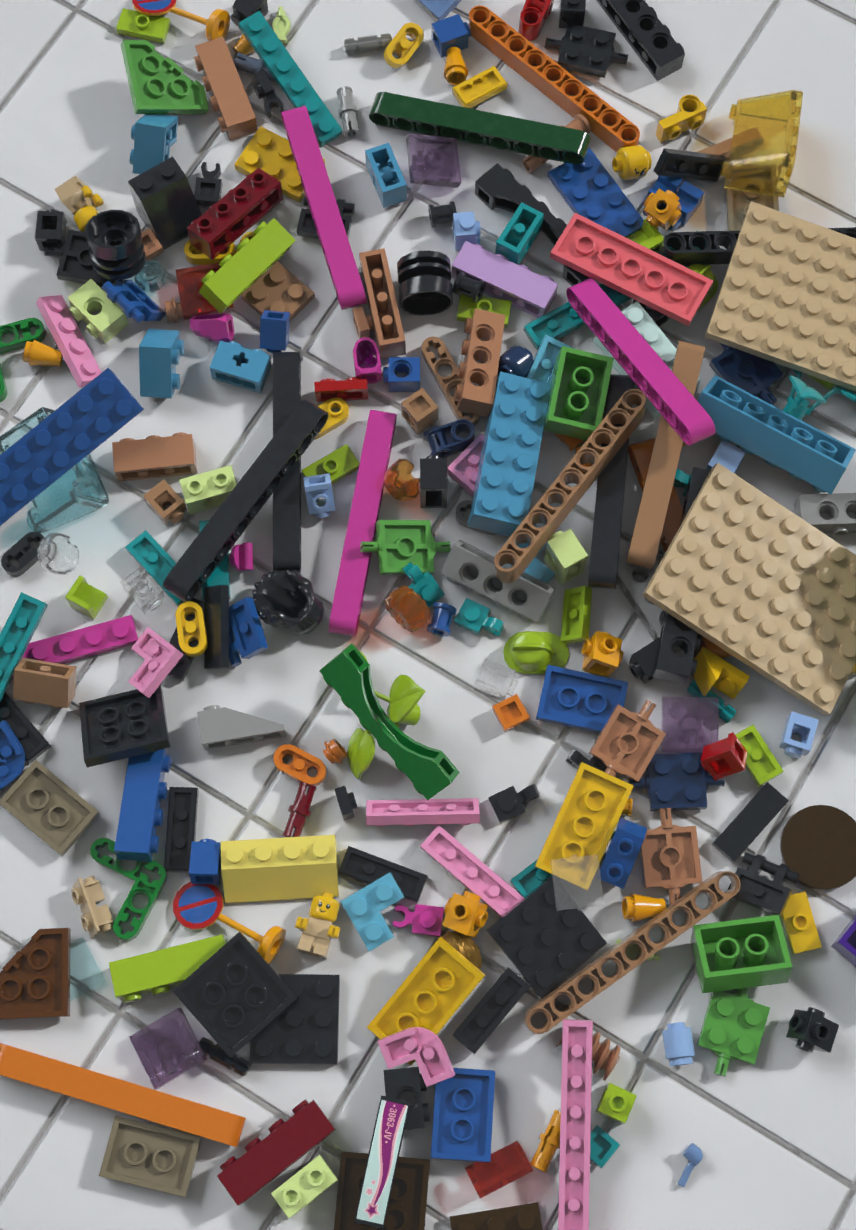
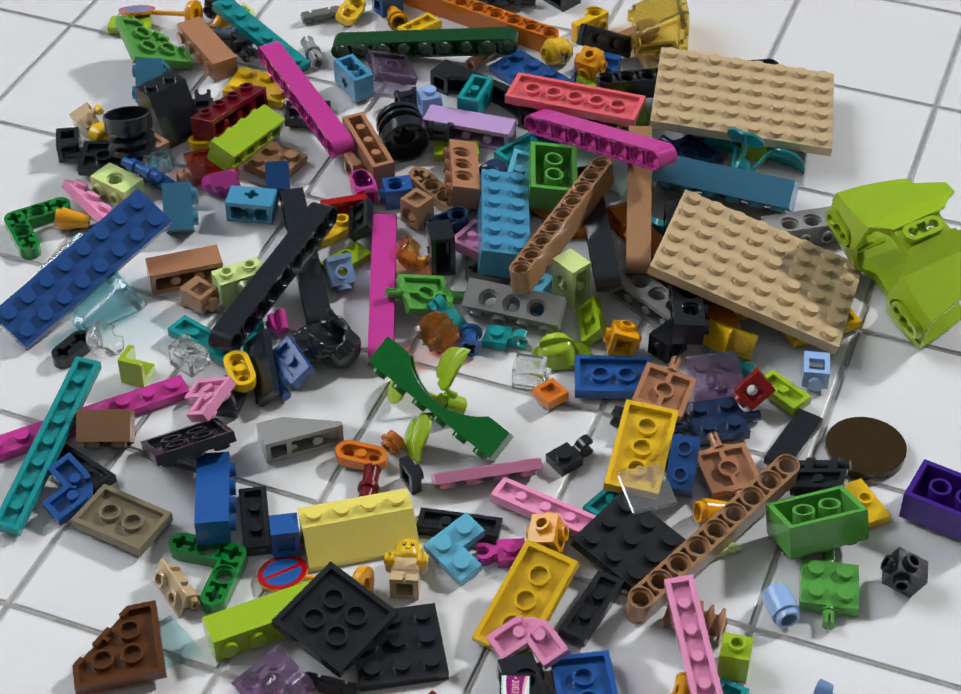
camera: 10 degrees left, 30 degrees down
(355, 417) = (361, 220): none -> black plate

